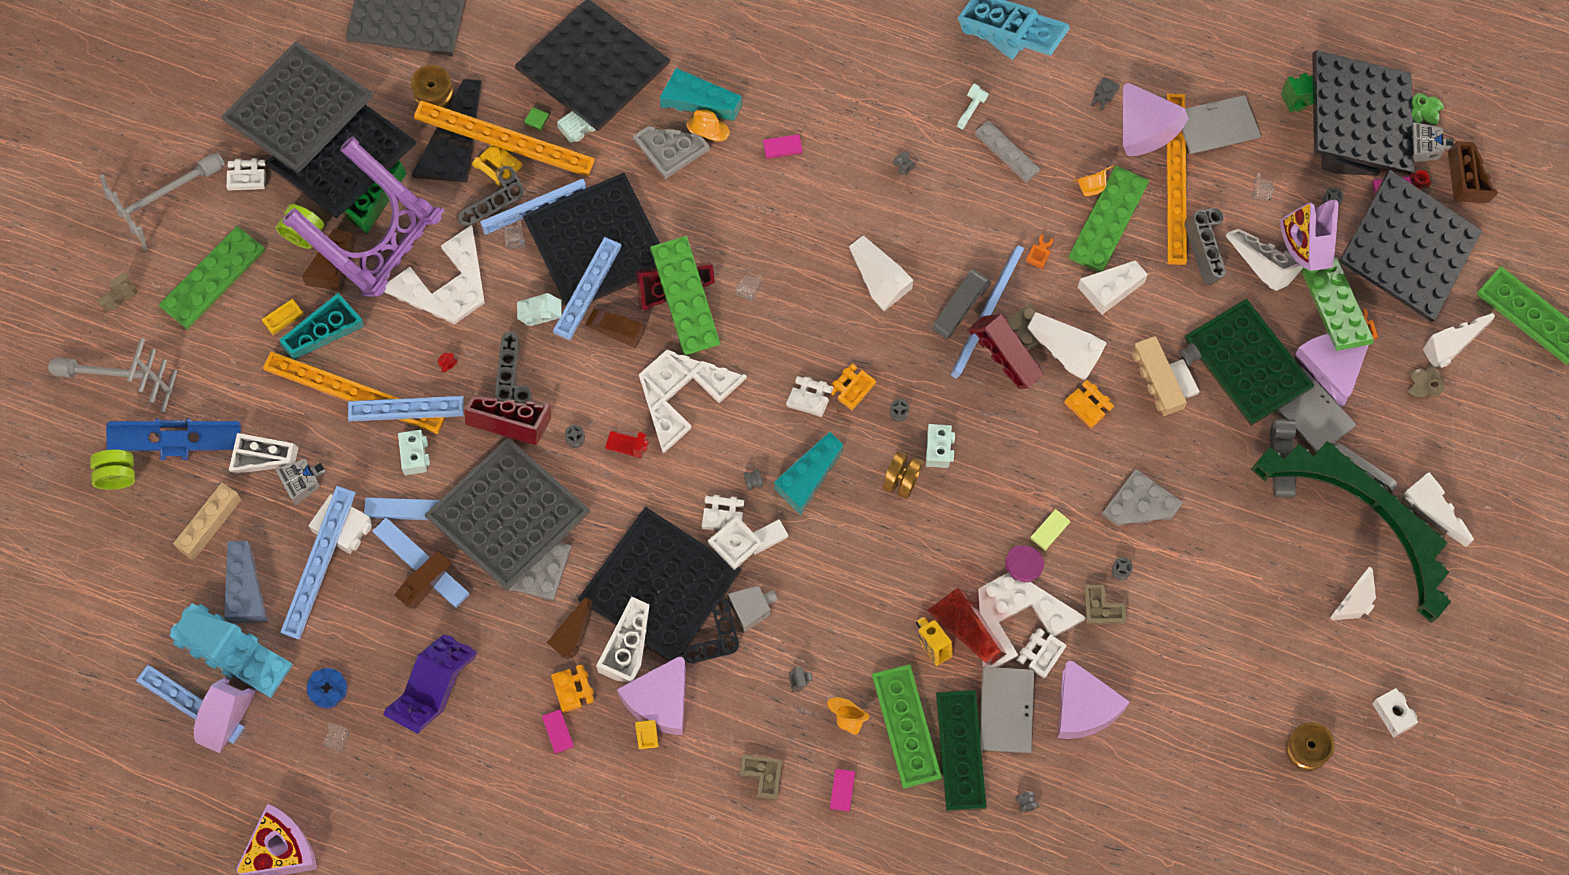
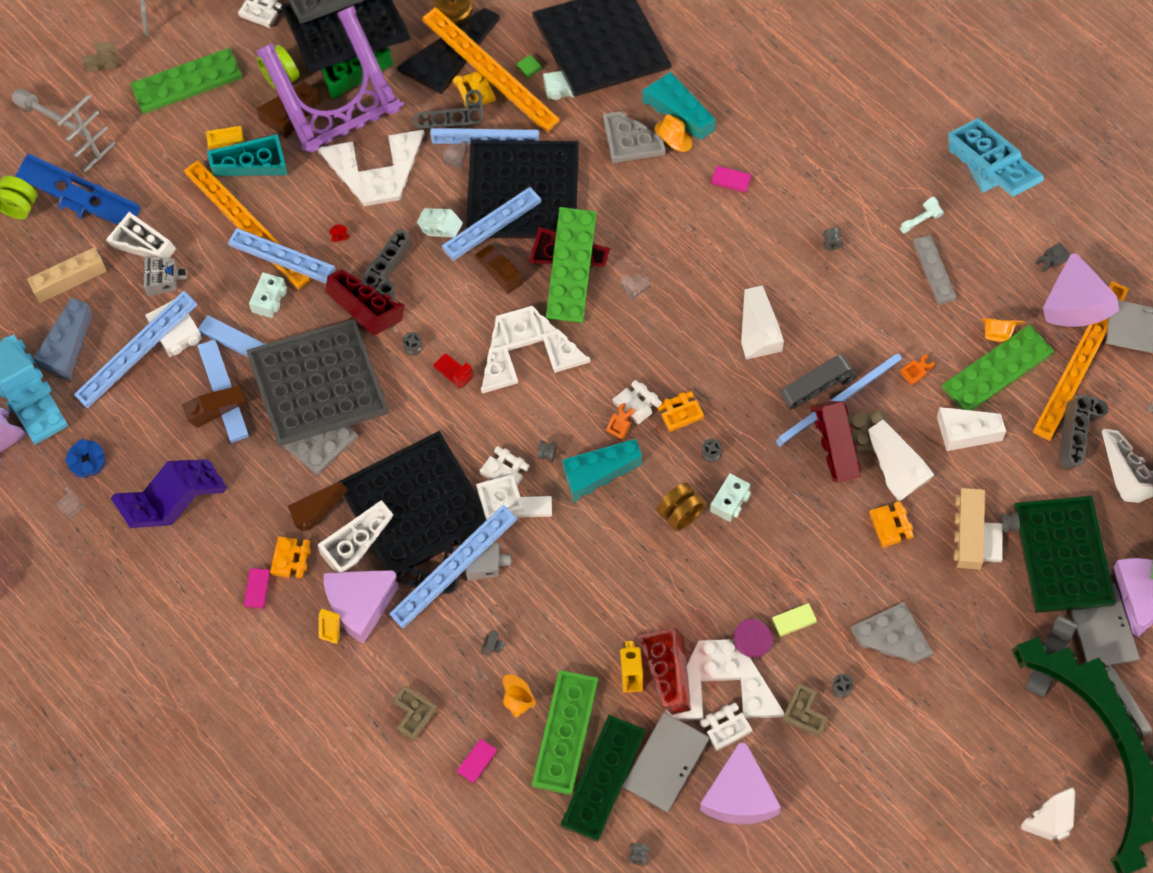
camera: 30 degrees right, 5 degrees down
(729, 626) = (453, 566): none -> light blue tile
(805, 424) = (619, 422): none -> orange plate

